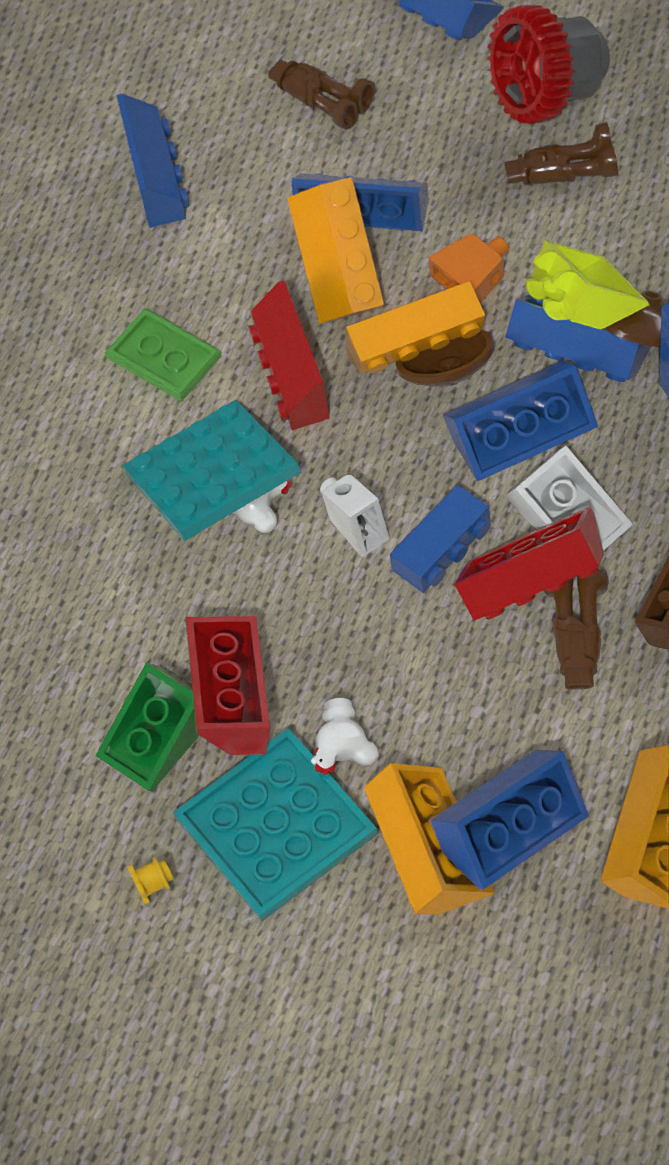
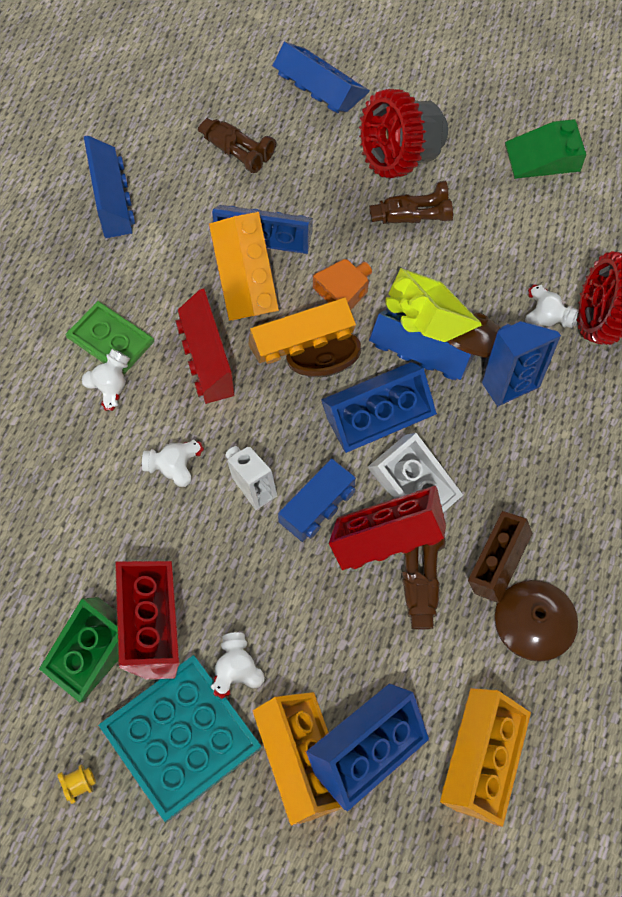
camera: 10 degrees left, 5 degrees up
(163, 403) = (108, 378): none -> white animal
(211, 469) = (142, 435): teal plate -> none

